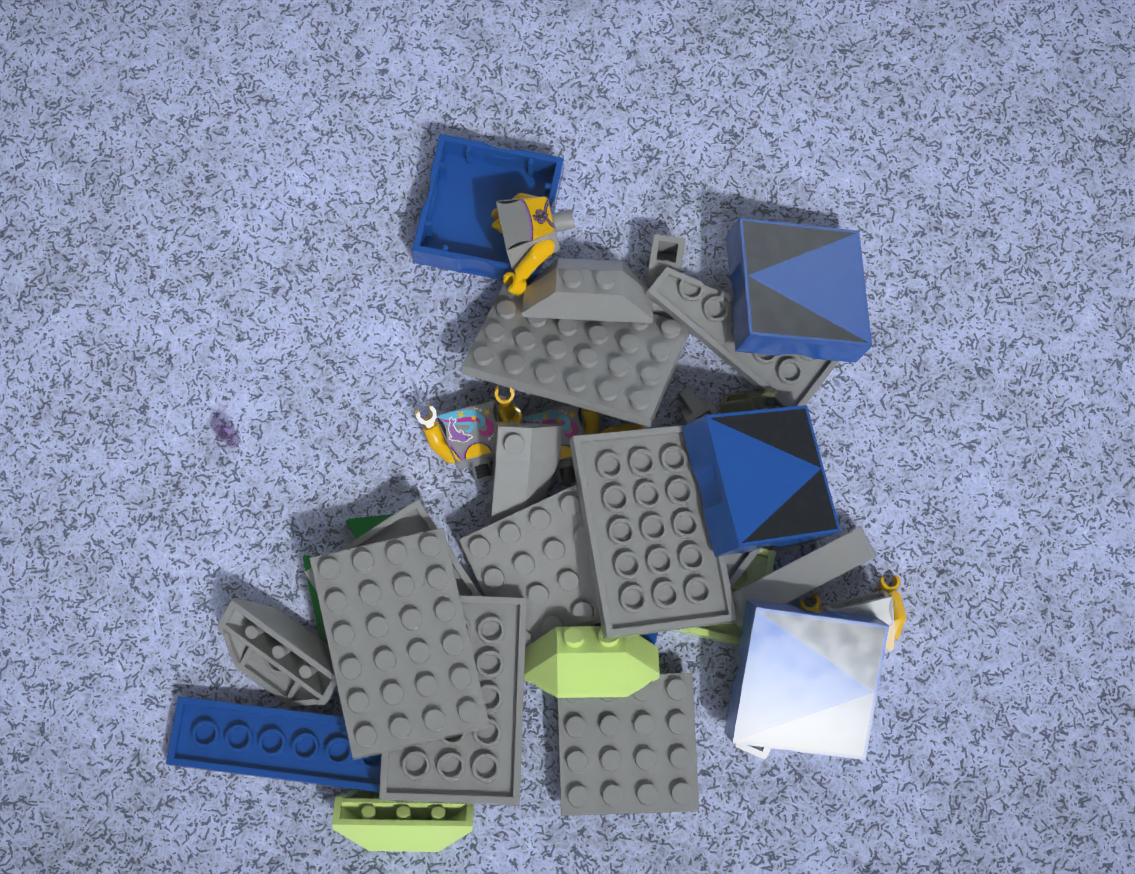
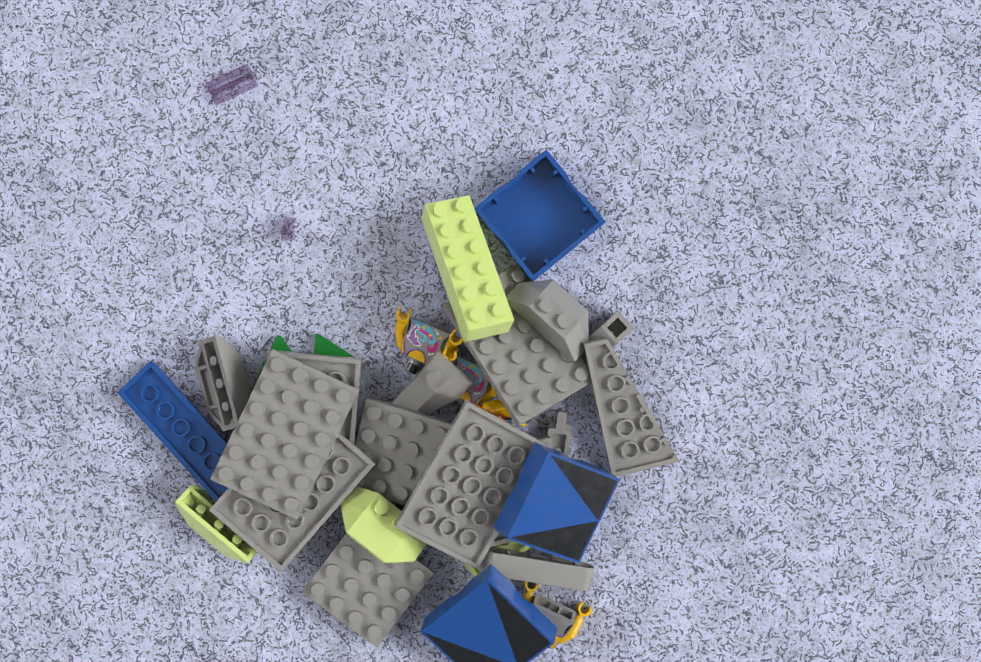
camera: 40 degrees right, 15 degrees up
(31, 324) = (245, 68): none -> clear purple tile
(456, 310) = (467, 268): none -> yellowish green brick
(528, 234) = (545, 255): torso -> none
(747, 400) = (590, 446): olive plate -> none
(798, 290) = (672, 410): tile -> none

